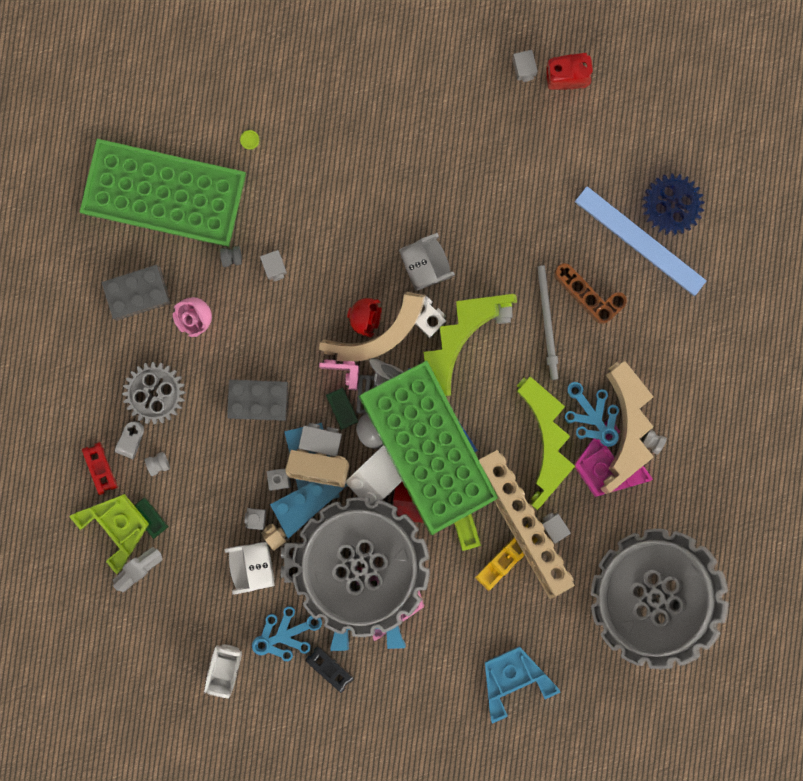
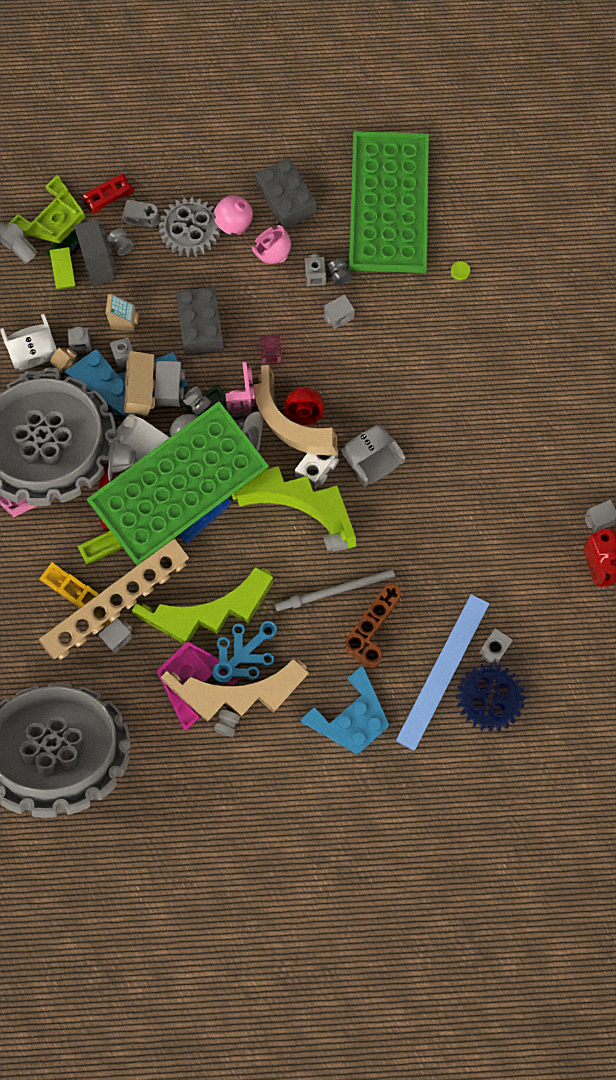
camera: 80 degrees right, 15 degrees down
(151, 348) = (233, 214): none -> bright pink cylinder
(166, 490) = (96, 252): none -> dark grey brick
(175, 524) = (62, 268): none -> lime tile
(231, 279) = (315, 270): none -> light grey brick
(238, 474) = (121, 314): none -> slope
(301, 337) = (270, 349): none -> clear pink brick
(343, 417) = (196, 400): none -> light grey wheel
(397, 494) = (121, 459): none -> light grey piece
(628, 180) = (499, 639): none -> light grey brick
(672, 324) = (358, 723): none -> dark azure wing

